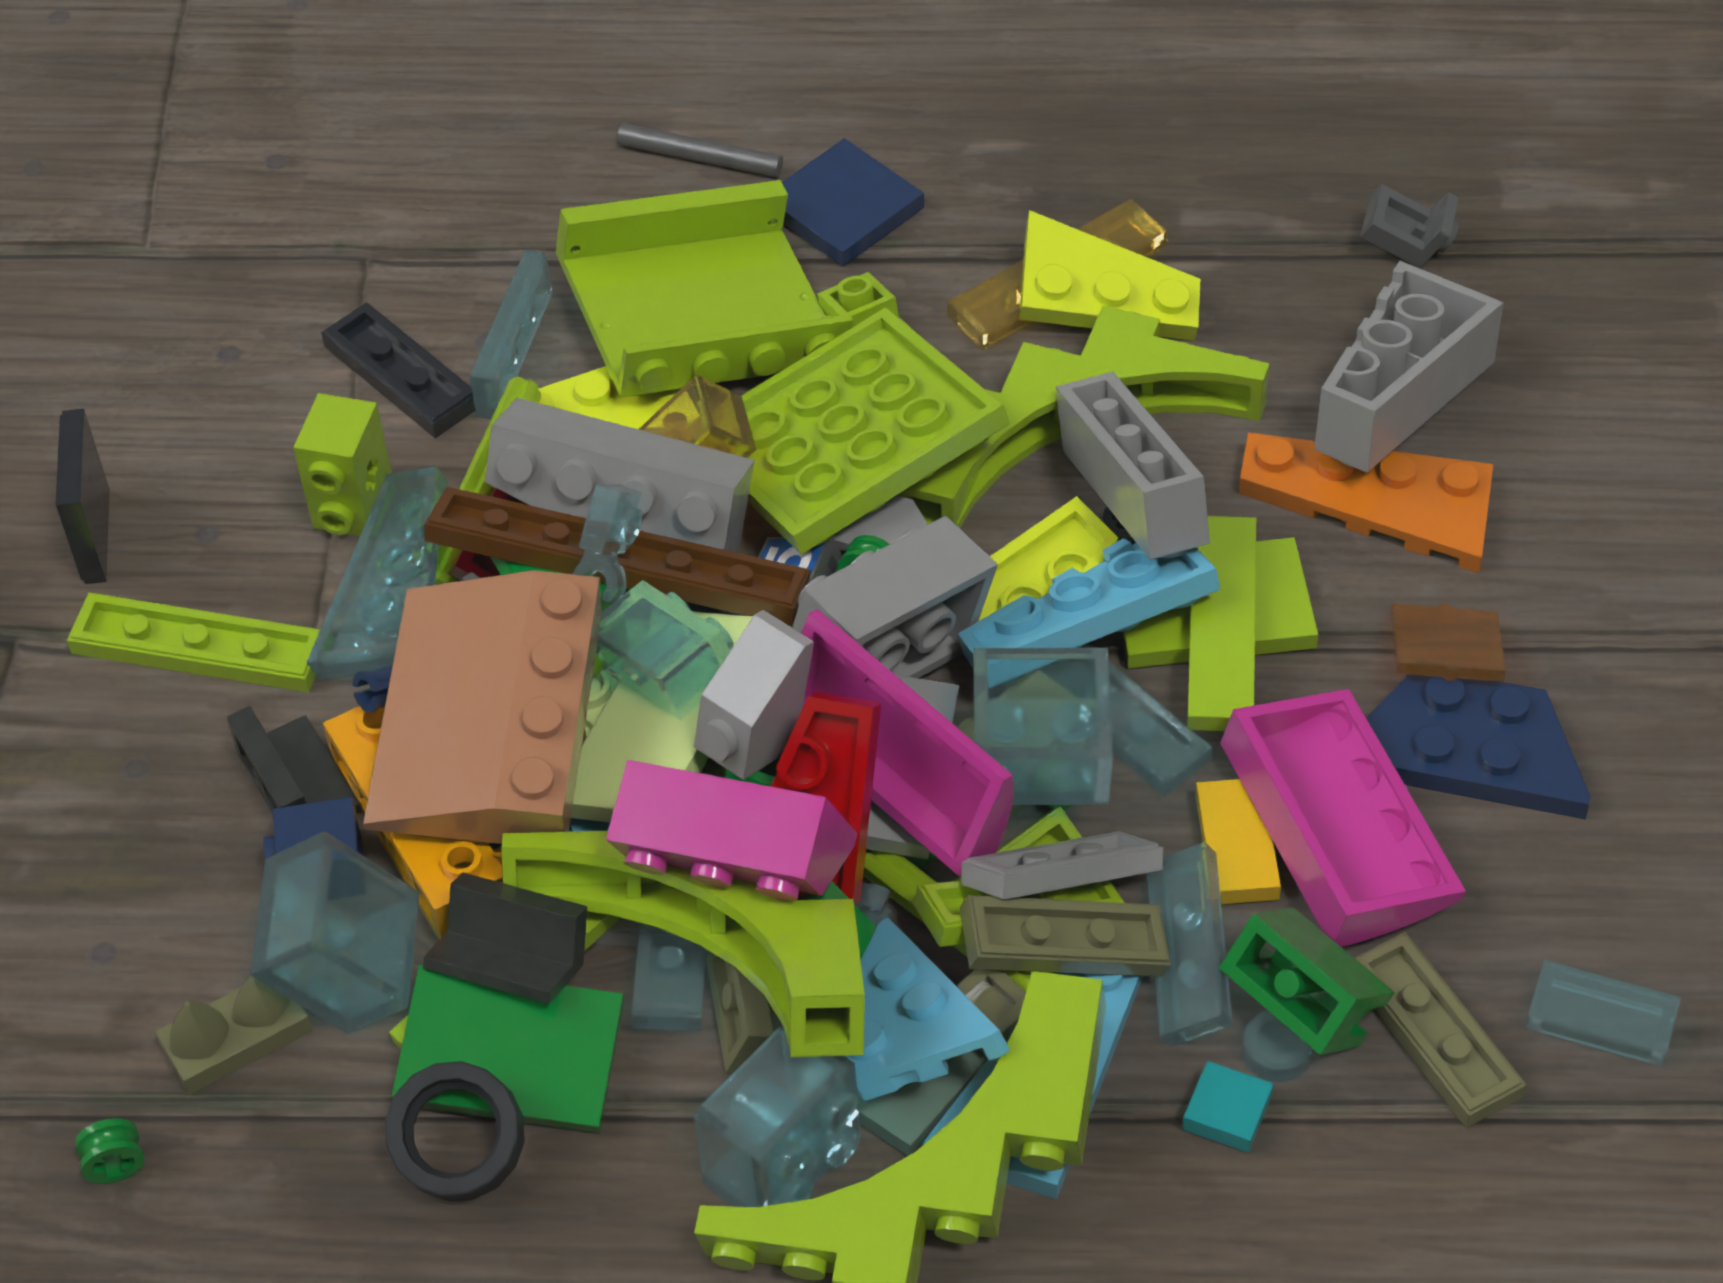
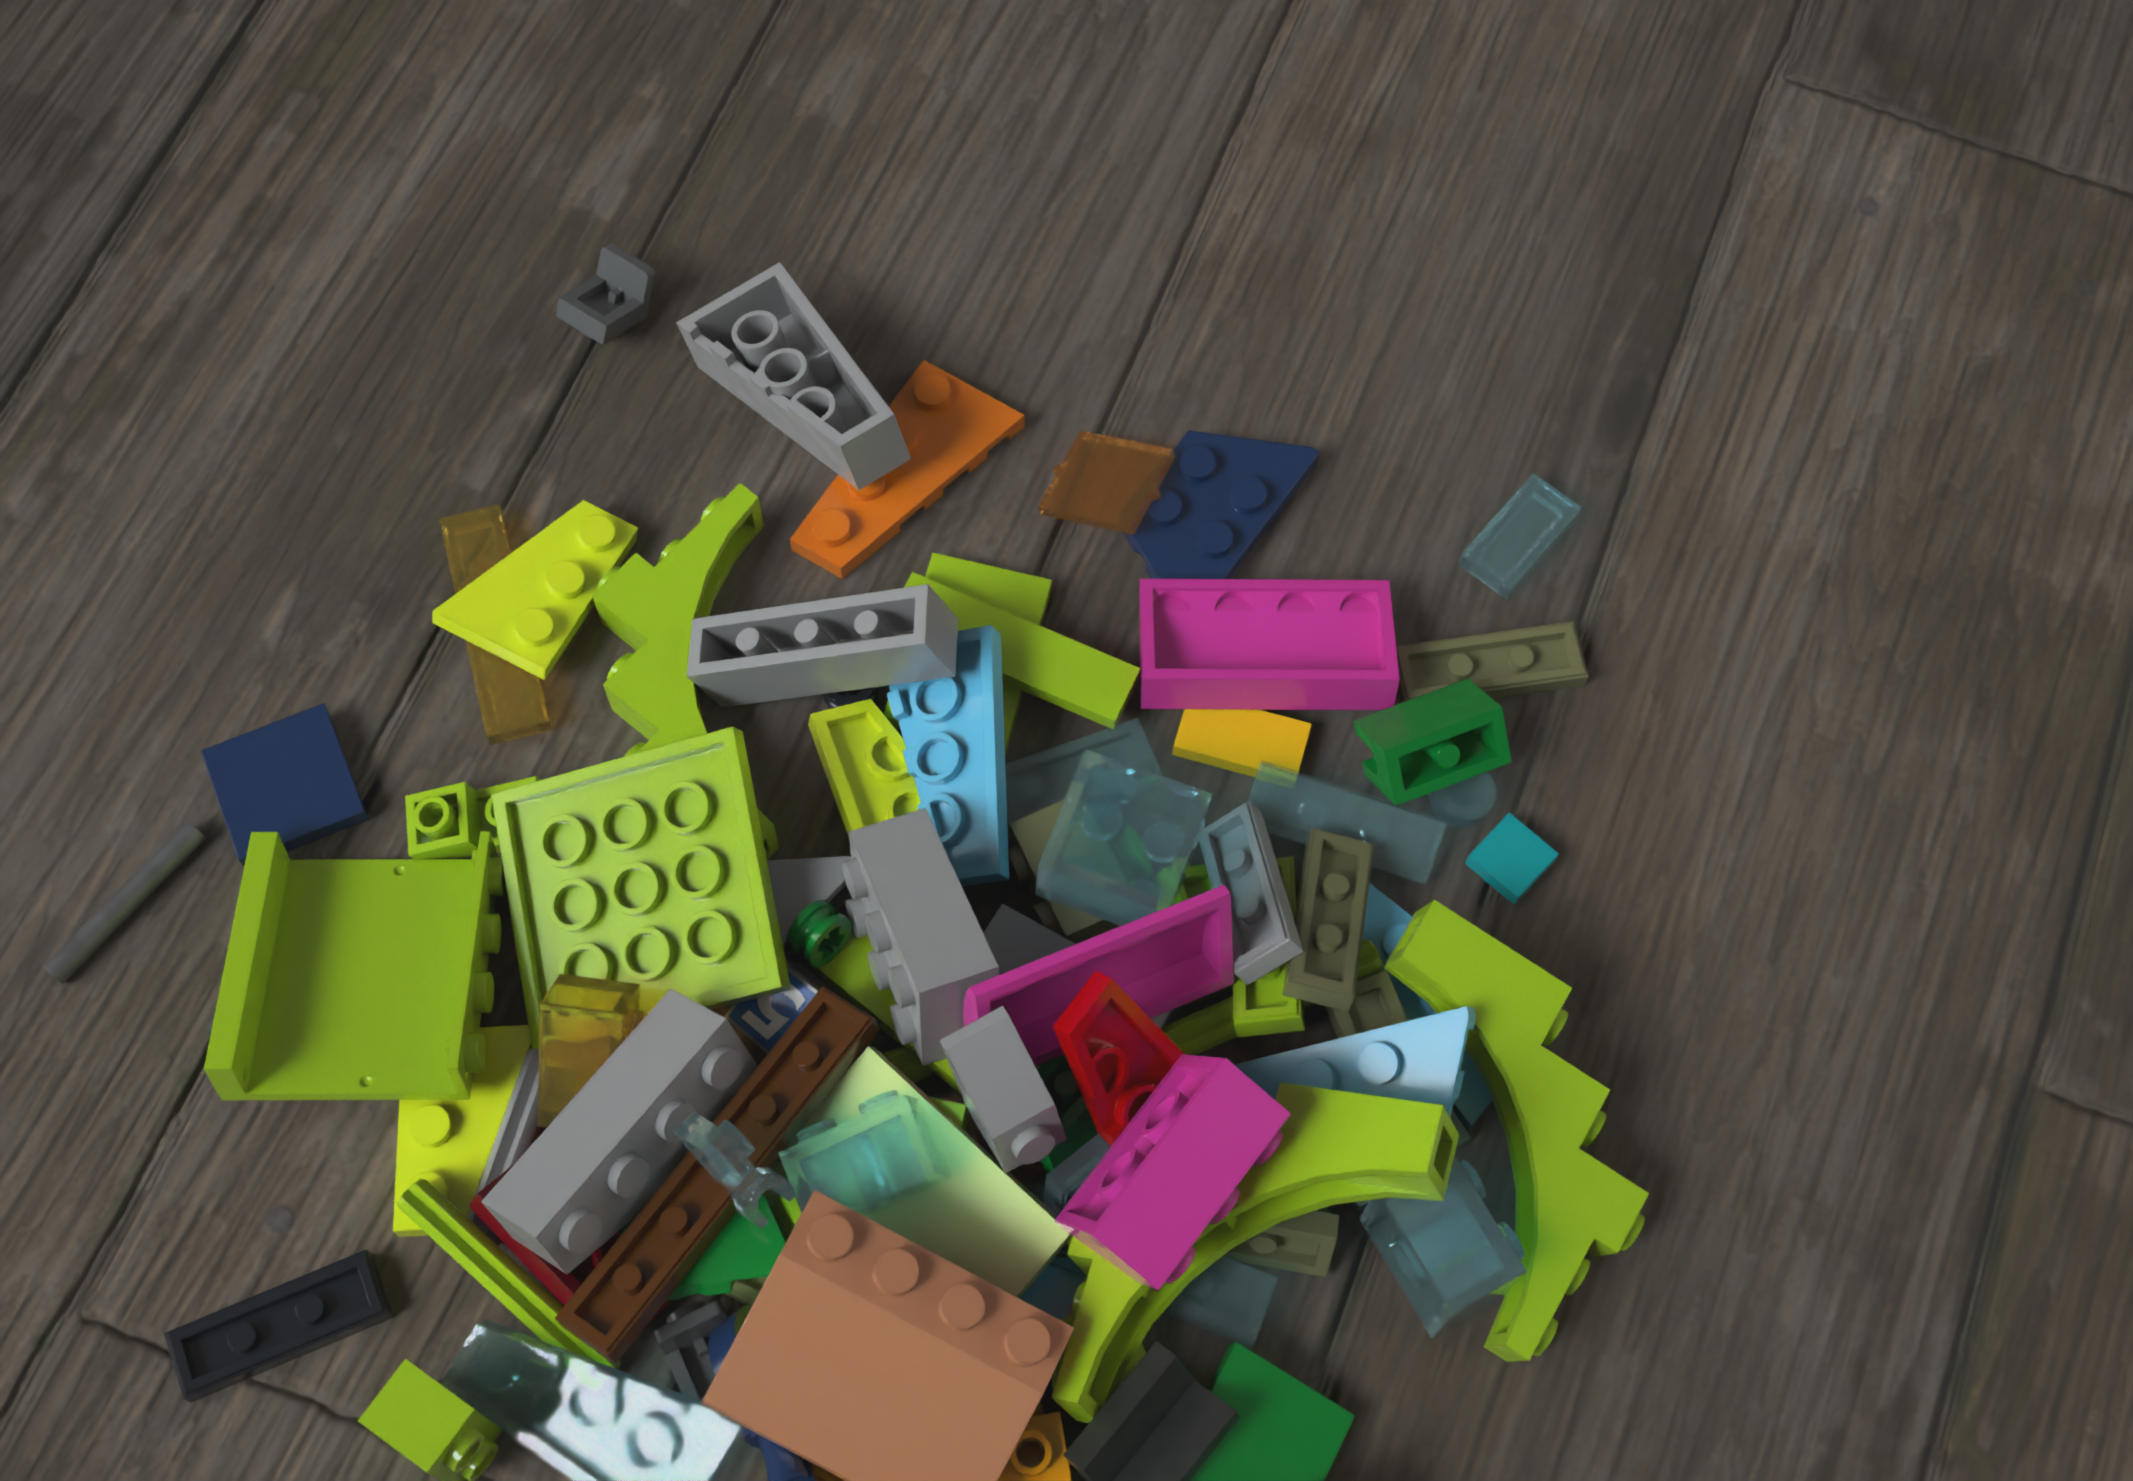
camera: 75 degrees left, 15 degrees up
(511, 332) = (305, 1185): clear light blue tile -> none

